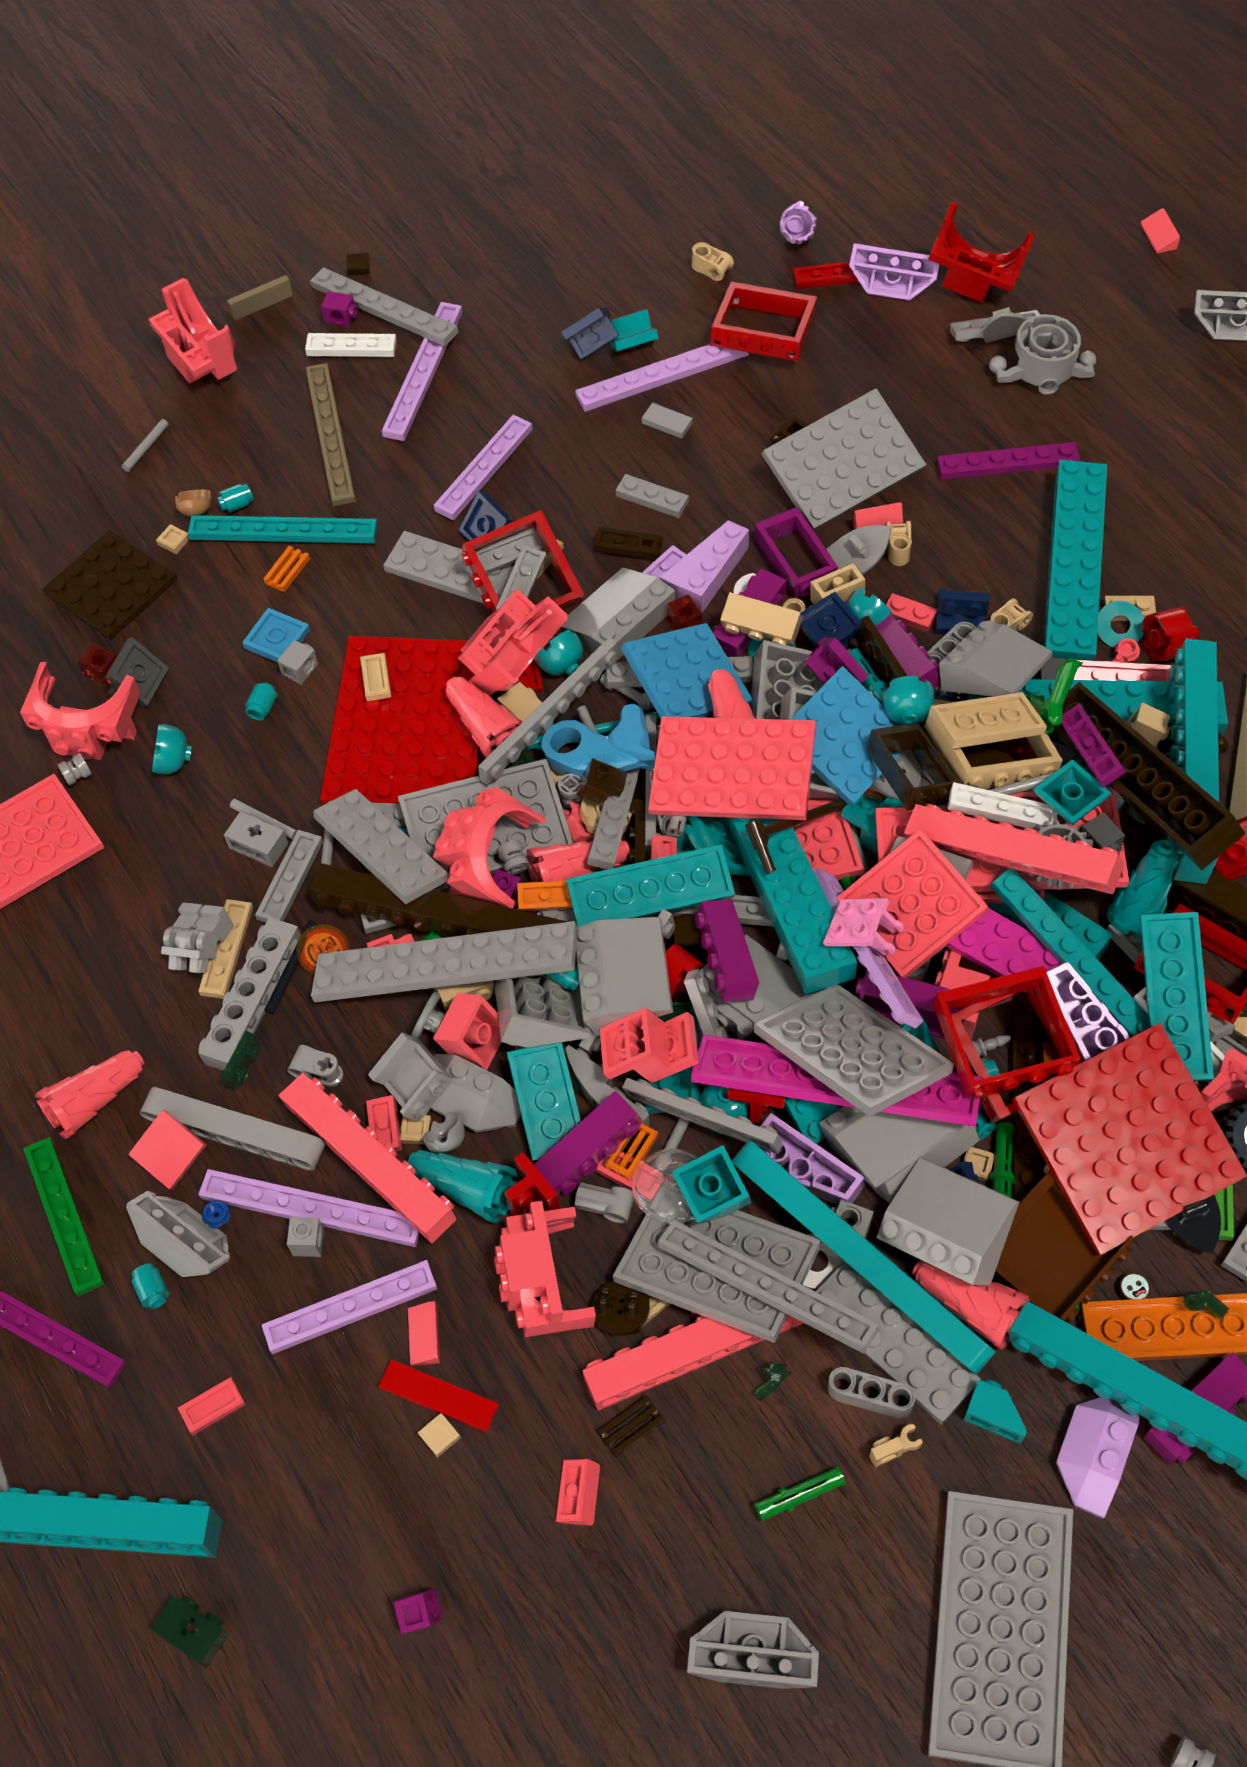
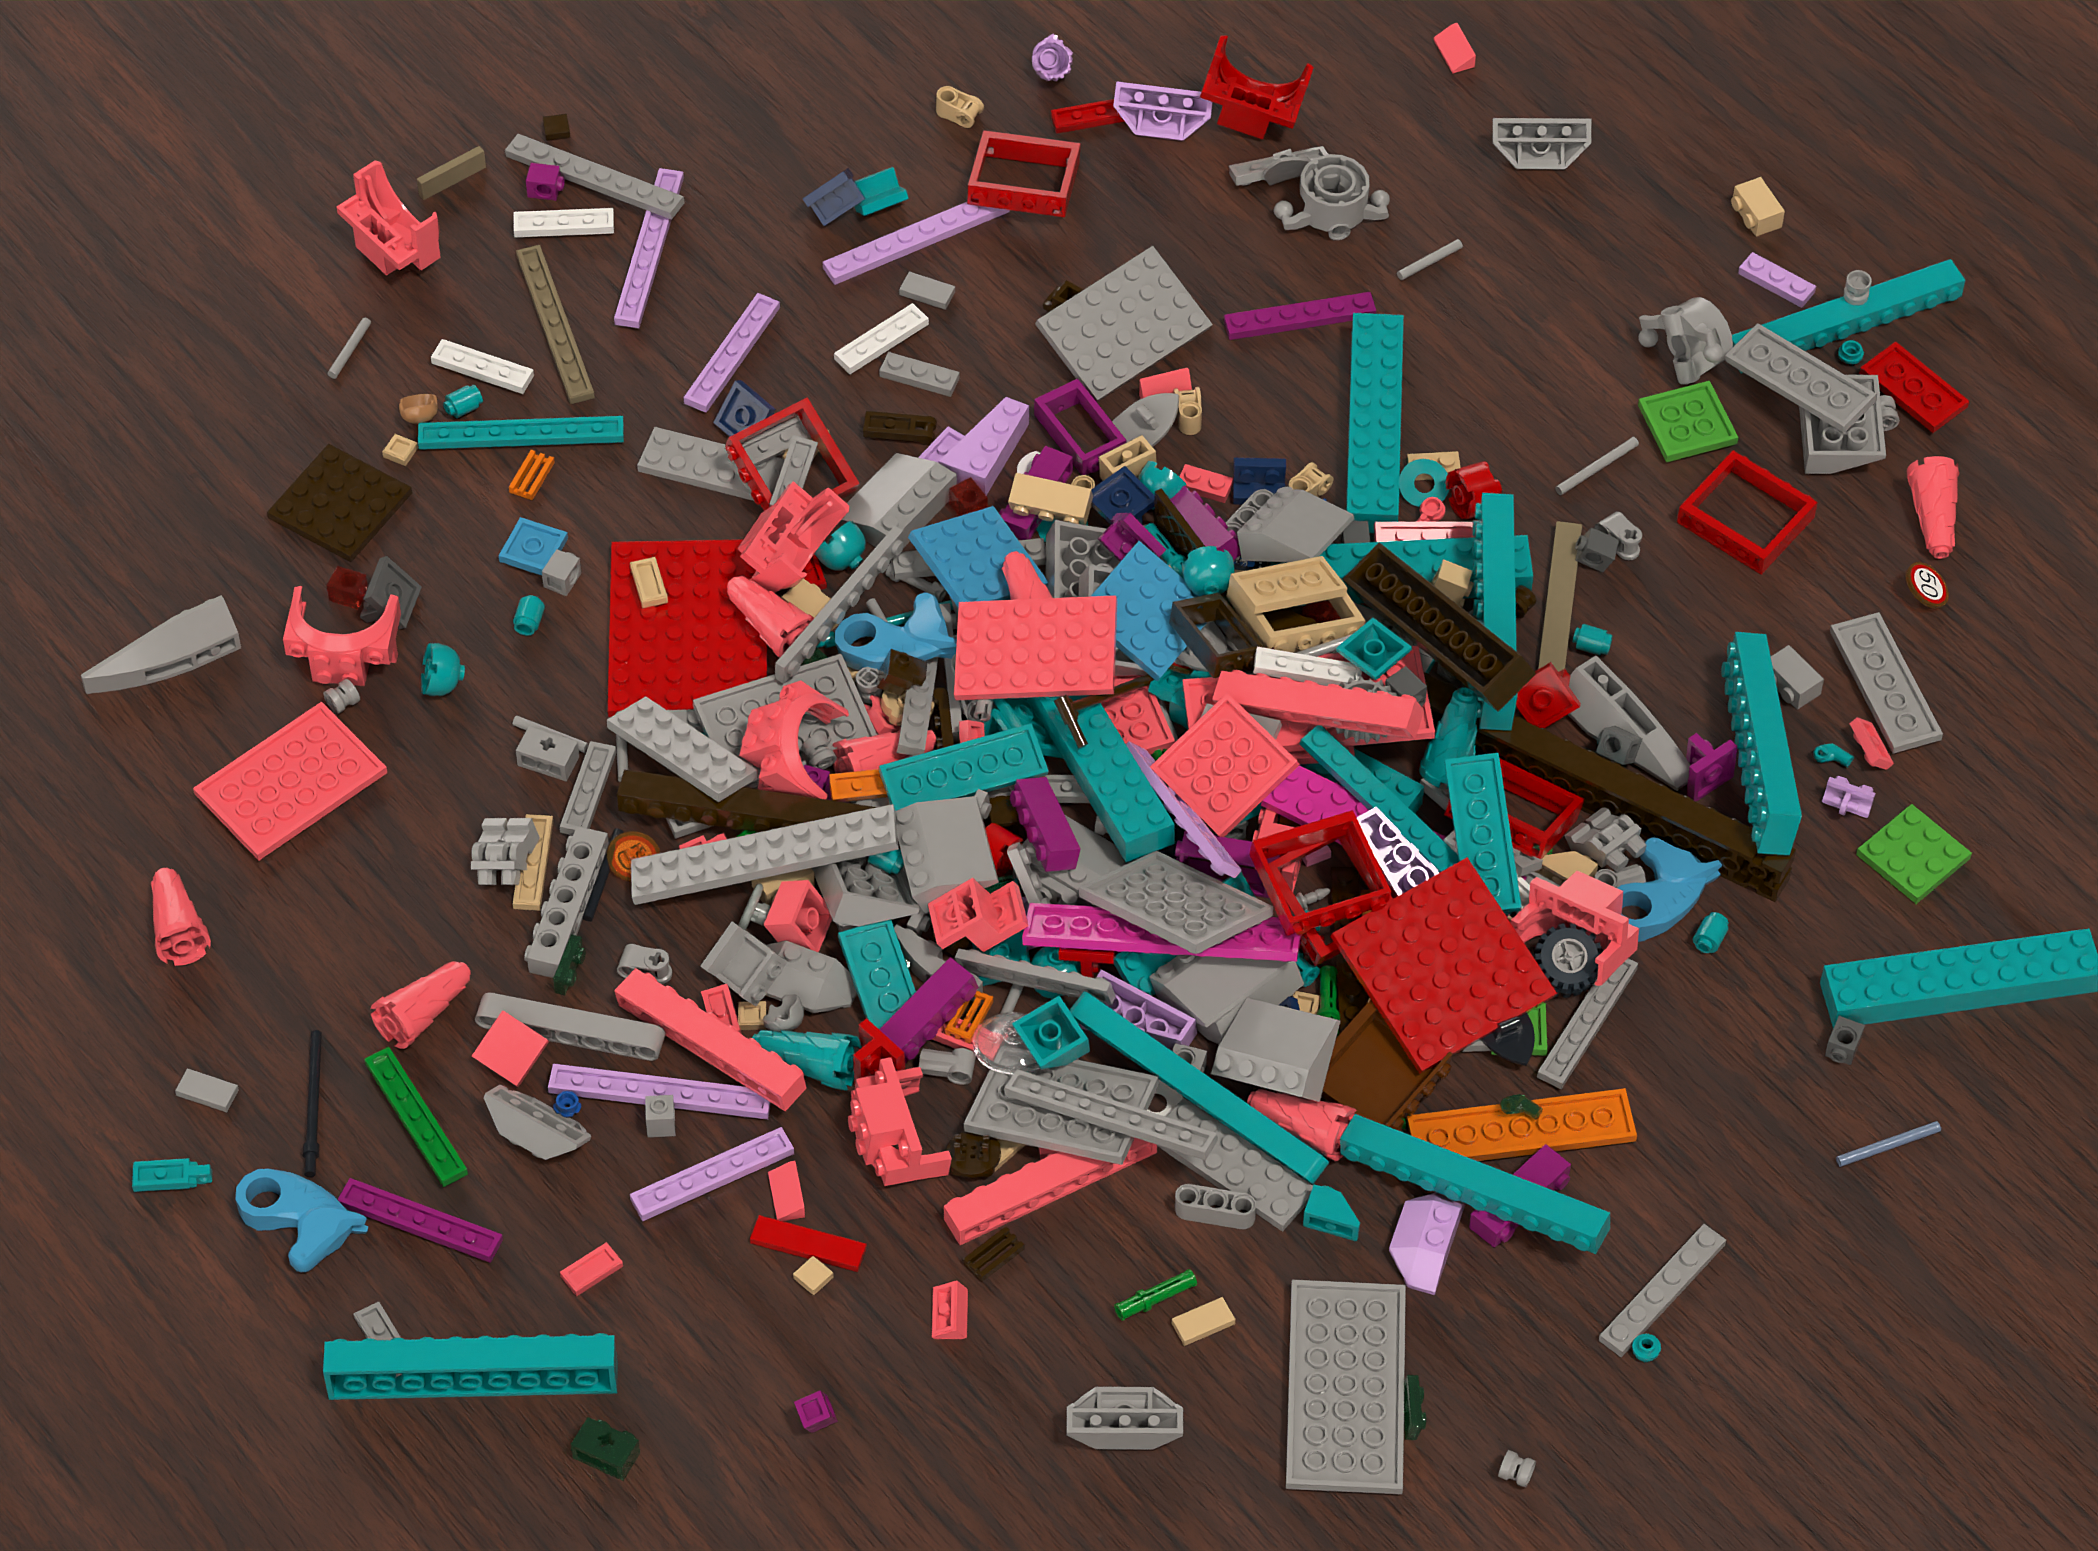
camera: 10 degrees left, 5 degrees down
(149, 1286) = (514, 1170): teal brick -> none
(258, 467) = (482, 366): none -> white plate
(620, 461) = (881, 338): none -> white plate
(776, 1373) = (1125, 1197): clear green plate -> none
(849, 1530) = (1203, 1321): none -> tan tile
(857, 923) = (1172, 787): bright pink plate -> none
(887, 1449) = (1237, 1251): tan plate -> none
(1052, 709) = (1351, 570): green piece -> none
(1077, 1681) = (1413, 1416): none -> clear green plate
(1092, 745) = (1391, 602): magenta plate -> none
(1130, 416) = (1429, 259): none -> light grey bar
(1134, 1287) = (1456, 1099): tile -> none

